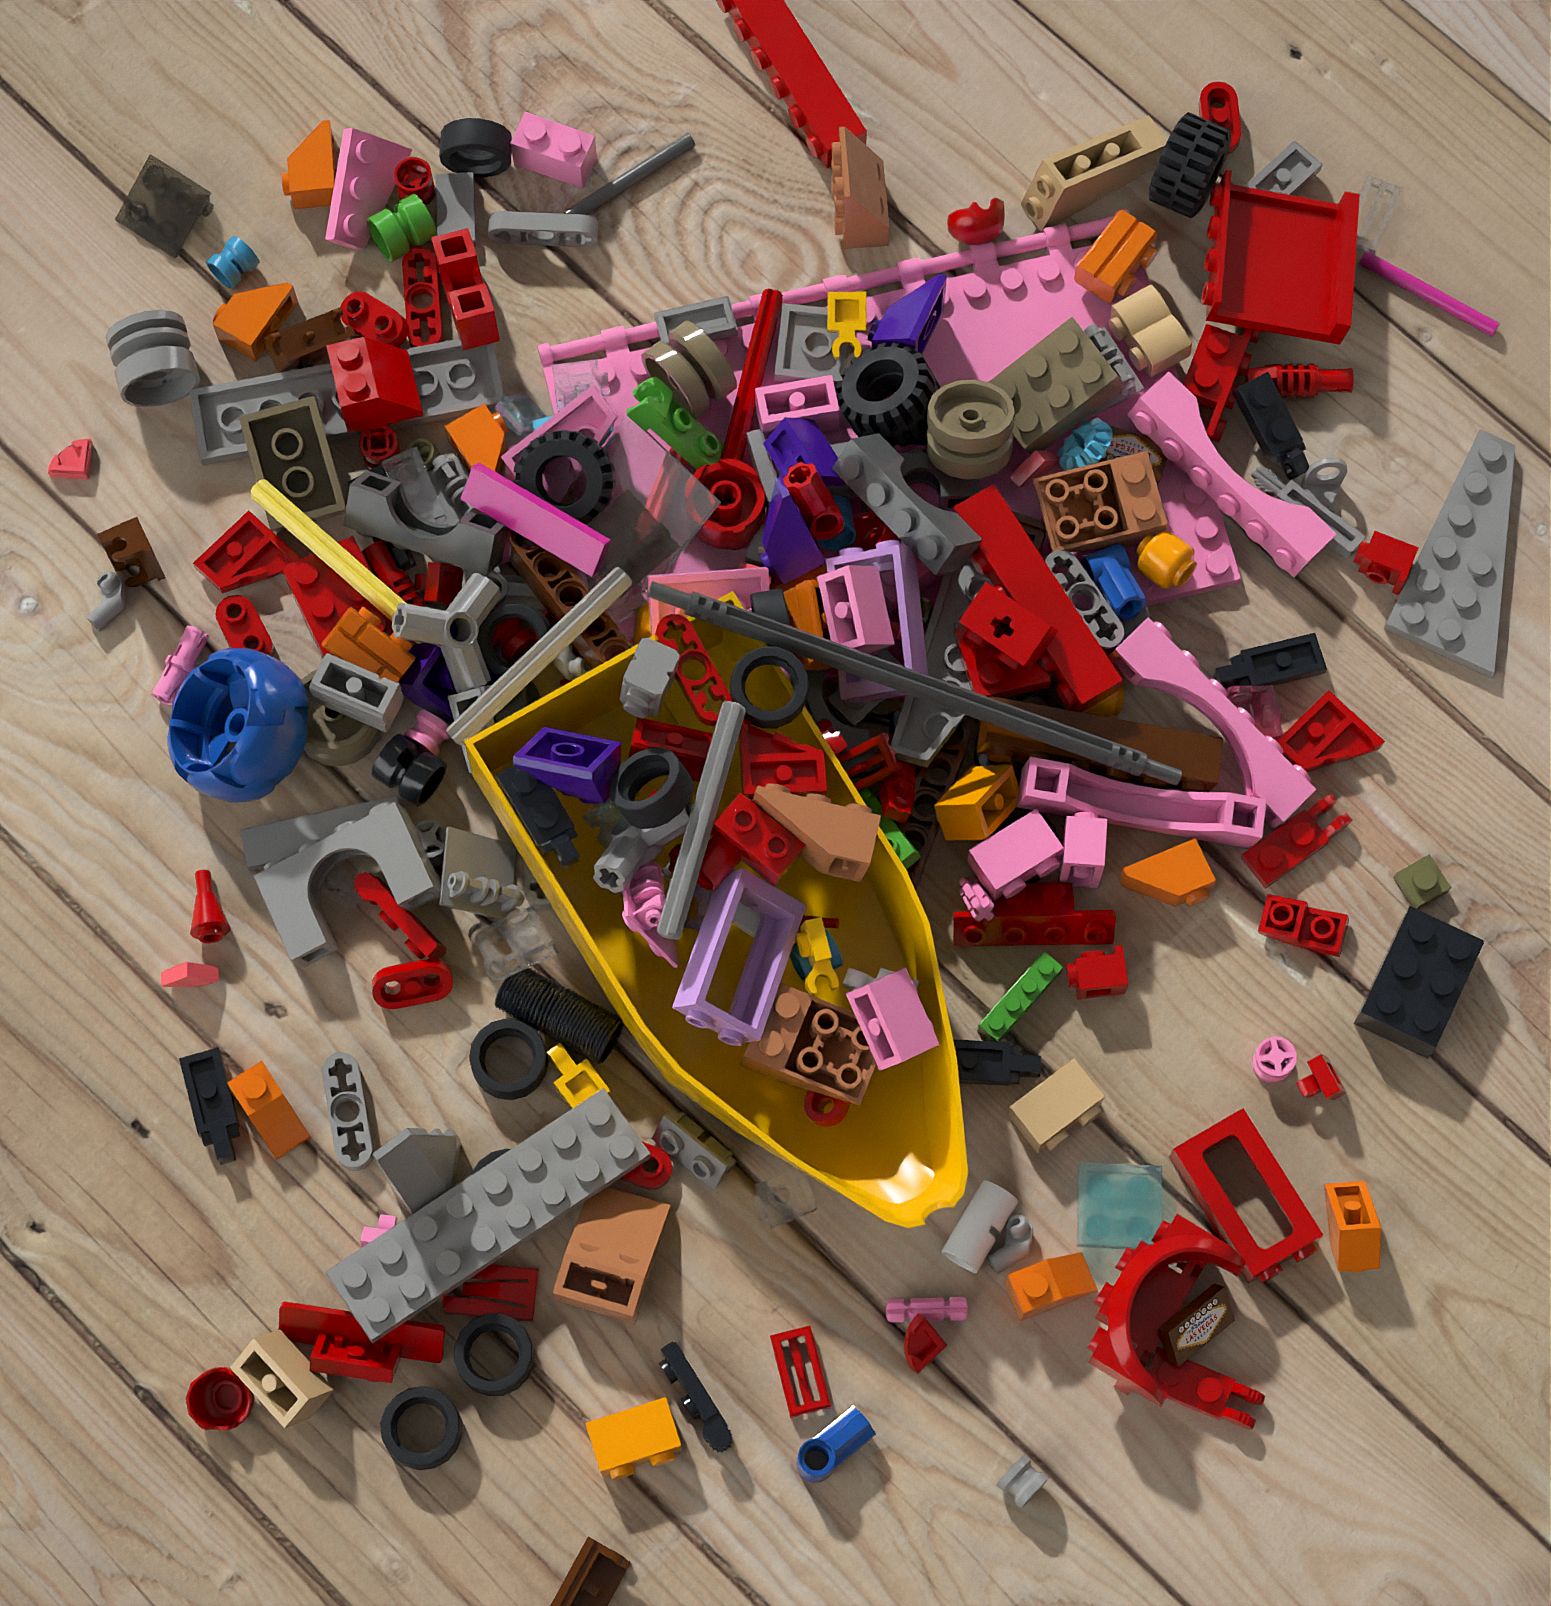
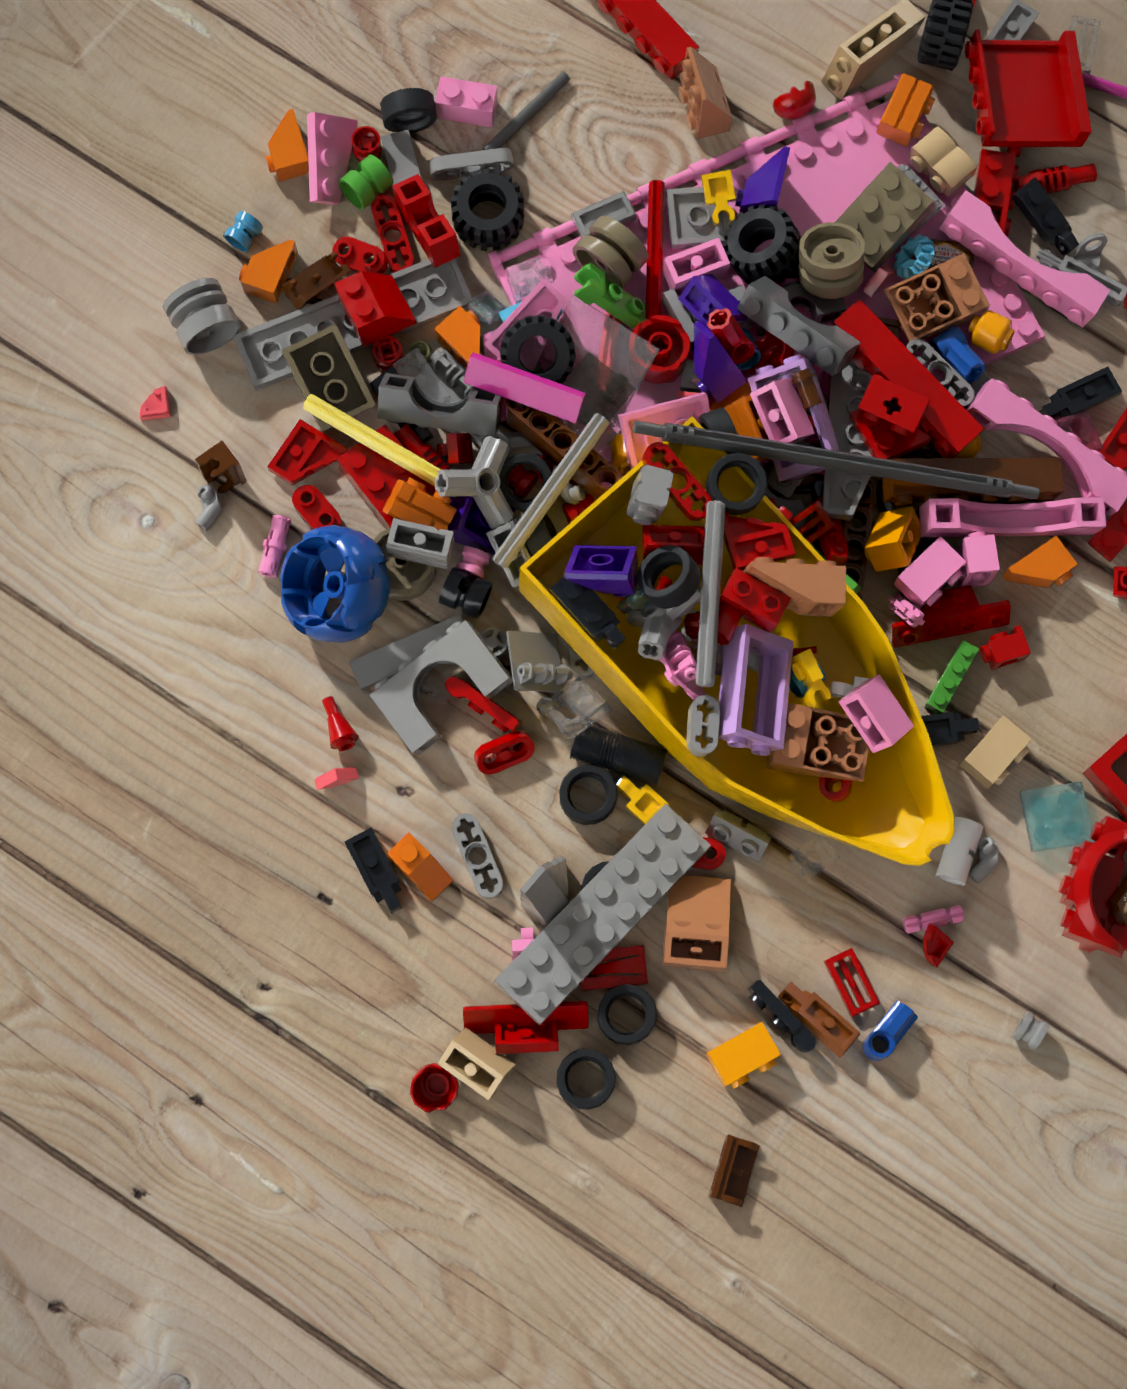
camera: 15 degrees left, 5 degrees up
(164, 206) = (180, 197): clear smoke hinge -> none
(546, 262) = (487, 188): none -> black tyre
(649, 986) = (710, 726): none -> light grey beam
(746, 1411) = (820, 1019): none -> dark orange hinge
(893, 583) = (806, 388): none -> reddish brown pin
(1049, 1284) = (1018, 884): orange slope -> none

